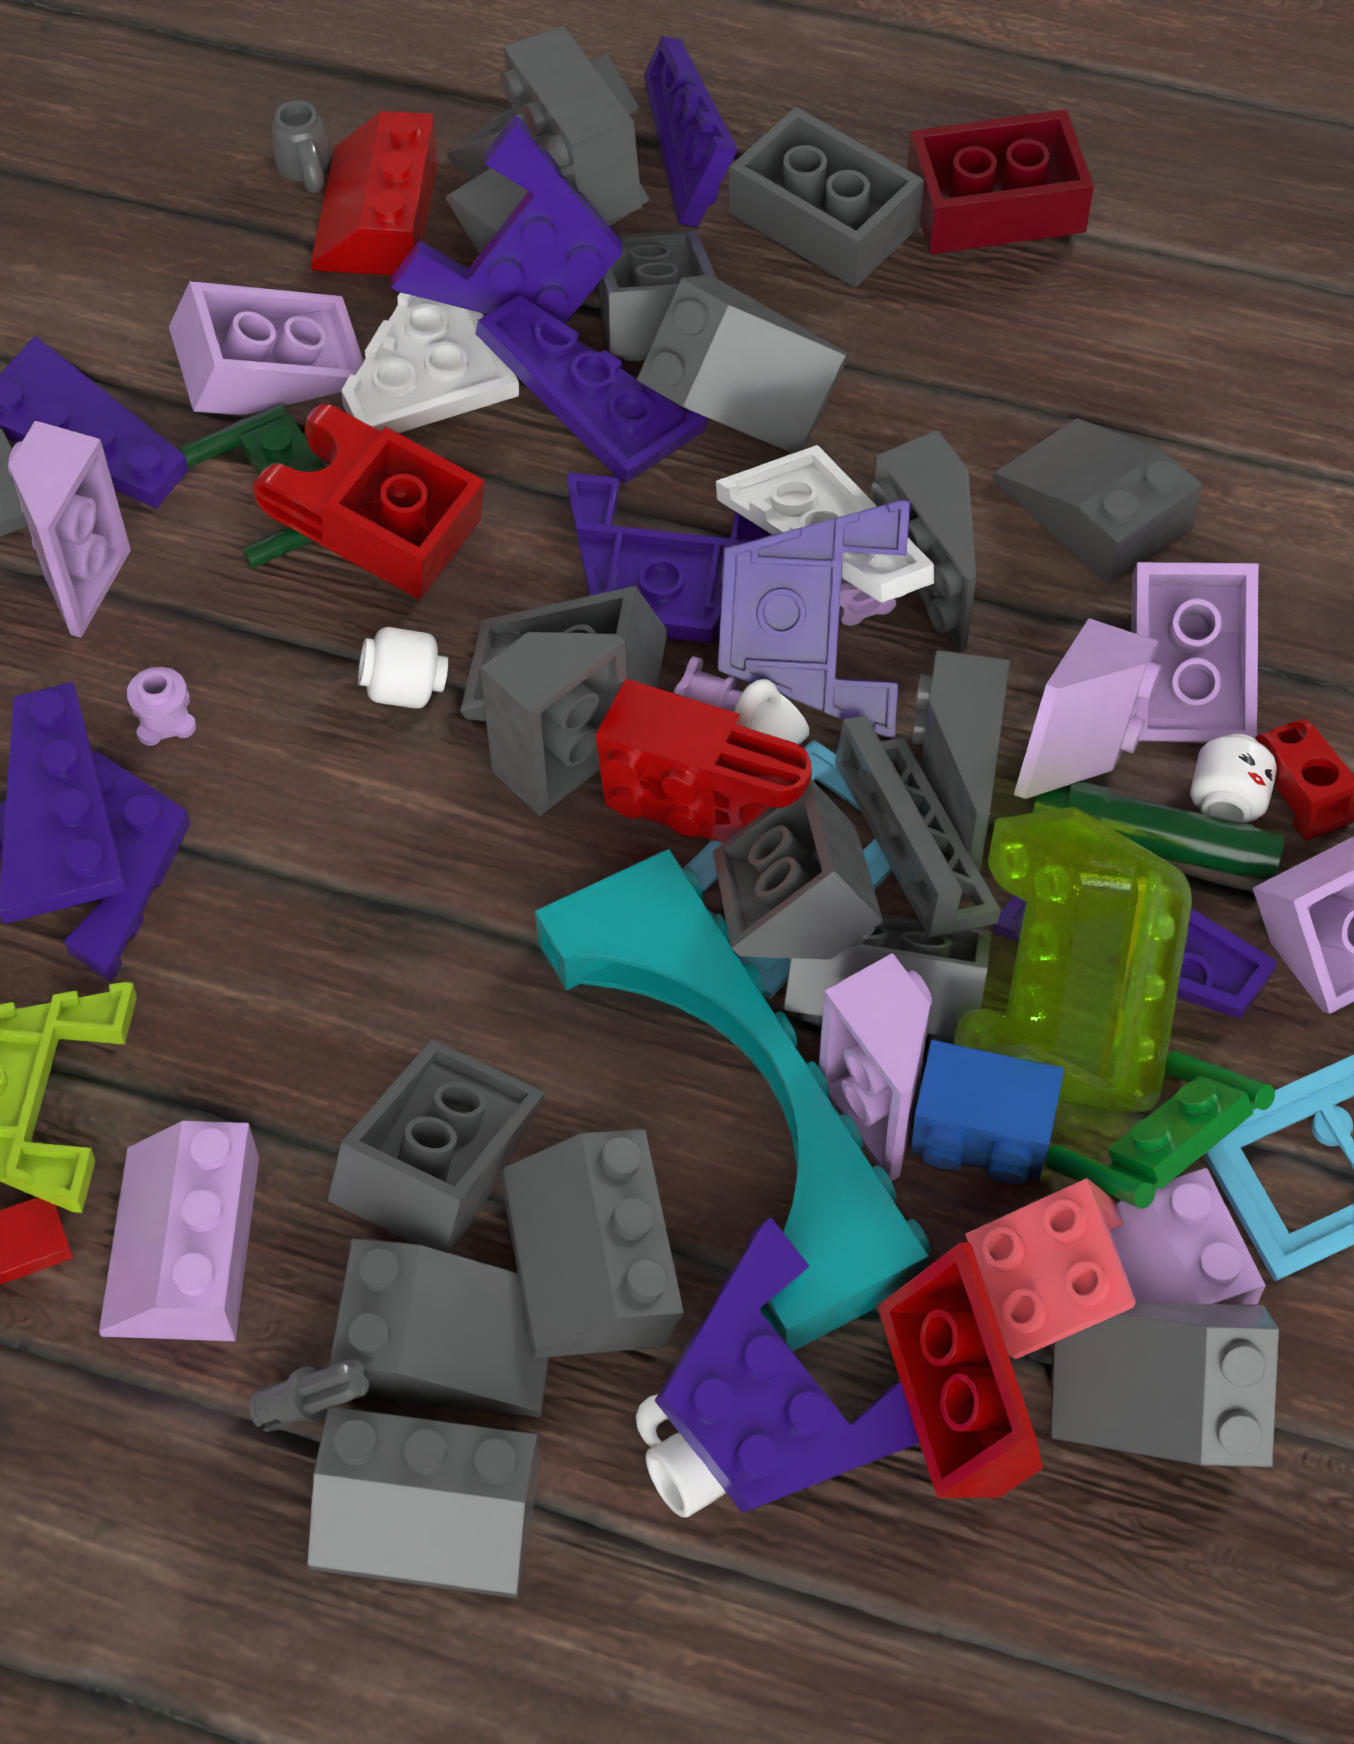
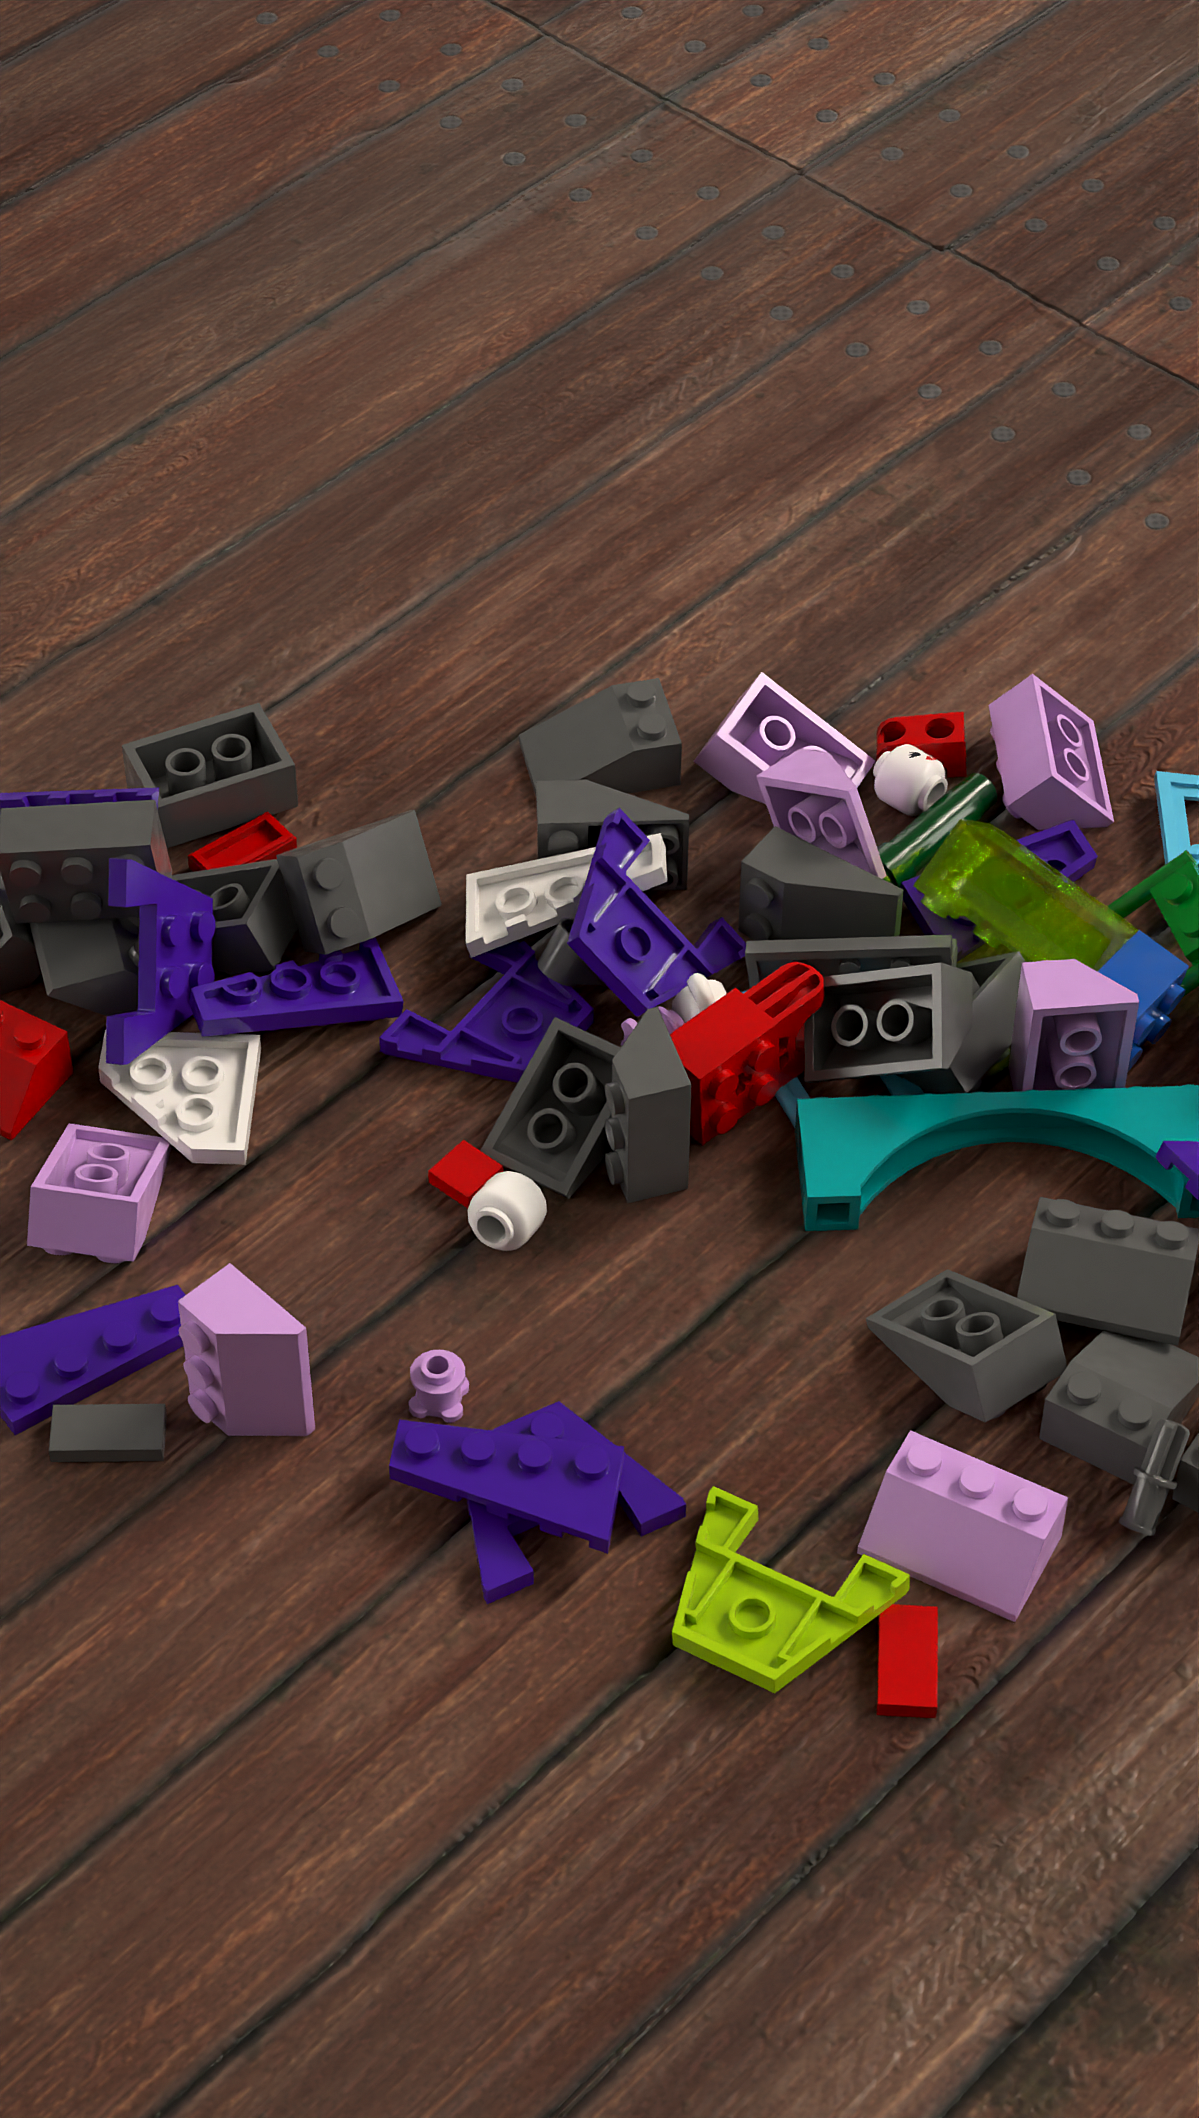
camera: 65 degrees left, 10 degrees down
(265, 440) = (241, 1223): dark green plate -> none
(377, 501) = (335, 1159): red brick -> none
(449, 618) = (463, 1172): none -> red tile
(768, 273) = (250, 843): none -> red tile
(1001, 181) = (275, 659): dark red brick -> none

